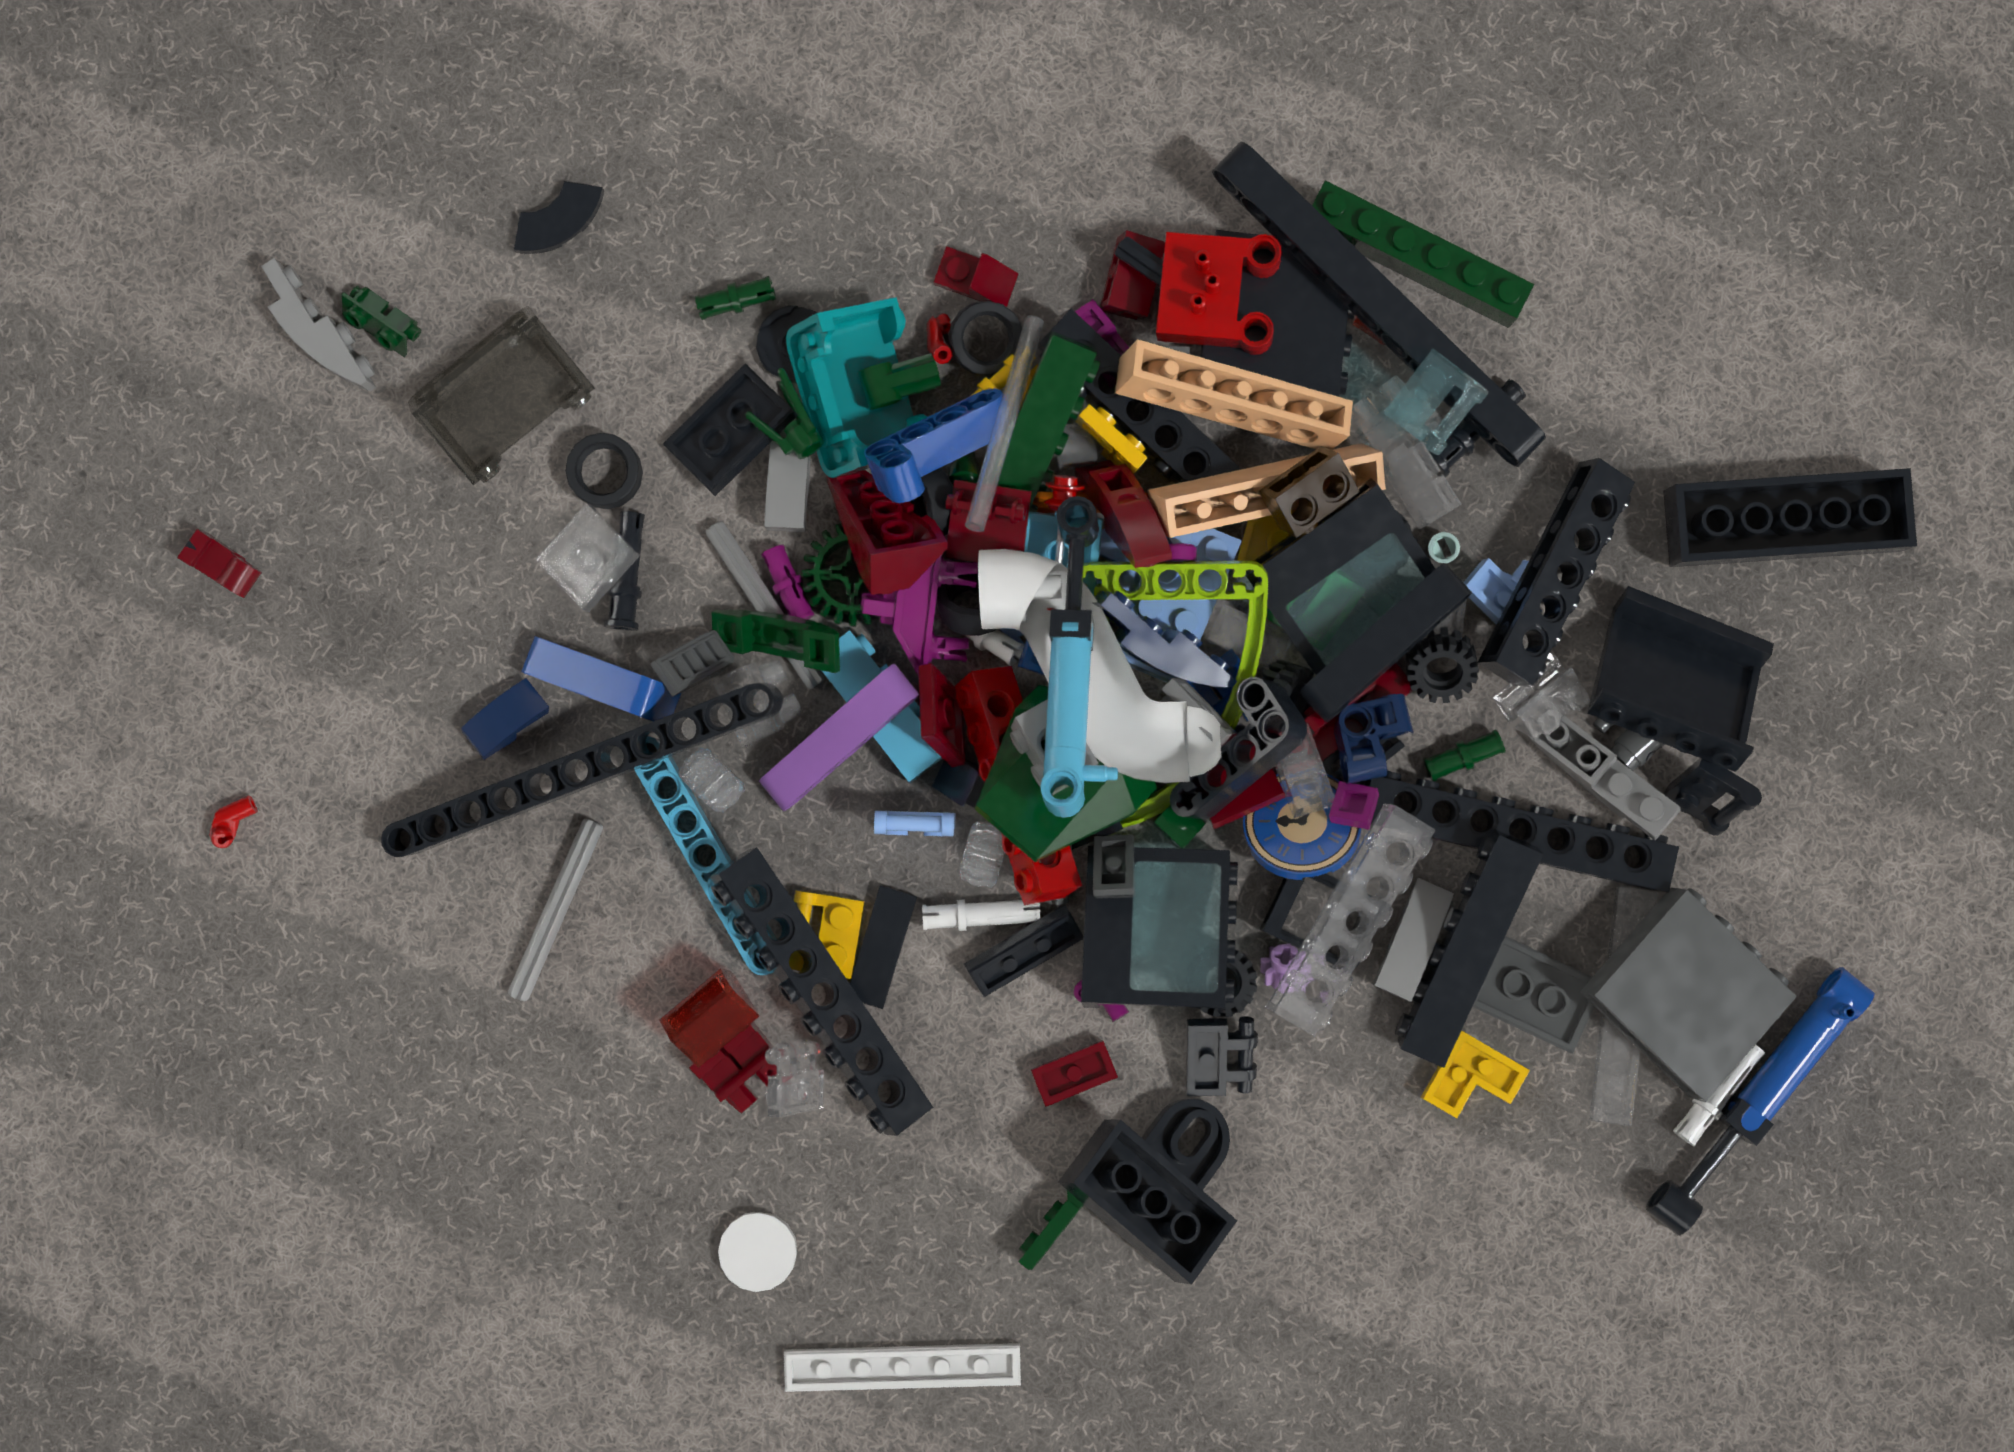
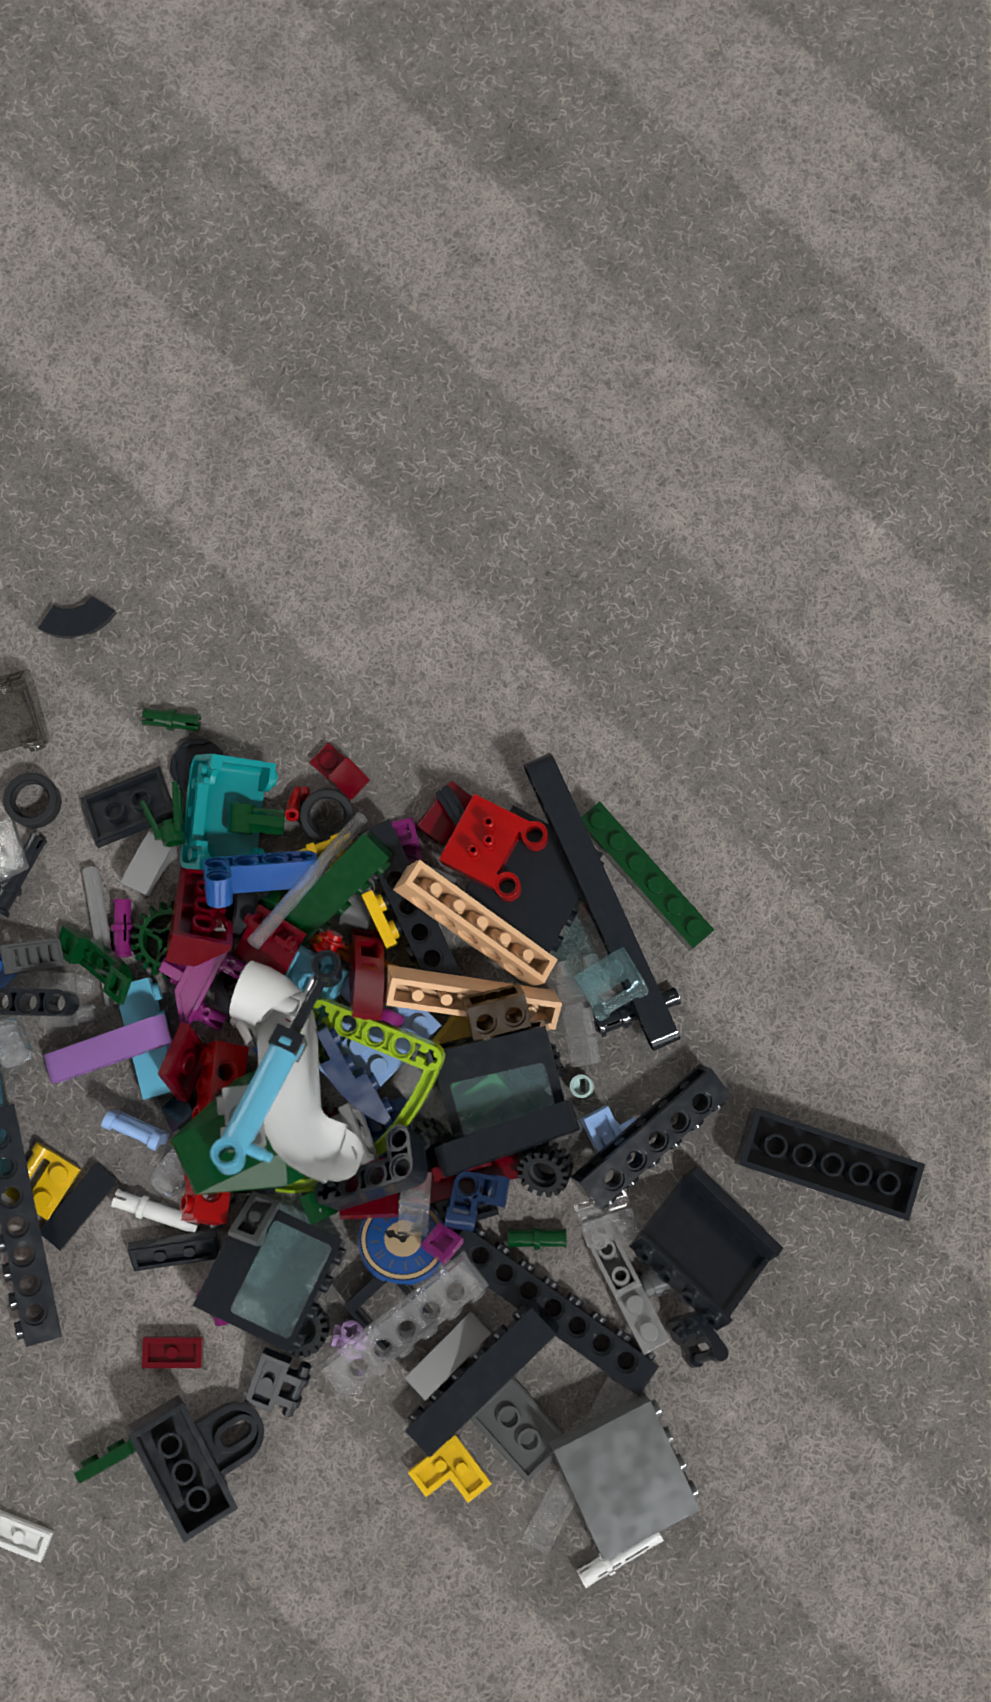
camera: 15 degrees right, 5 degrees down
(1749, 1114) = (633, 1581): blue piece -> none

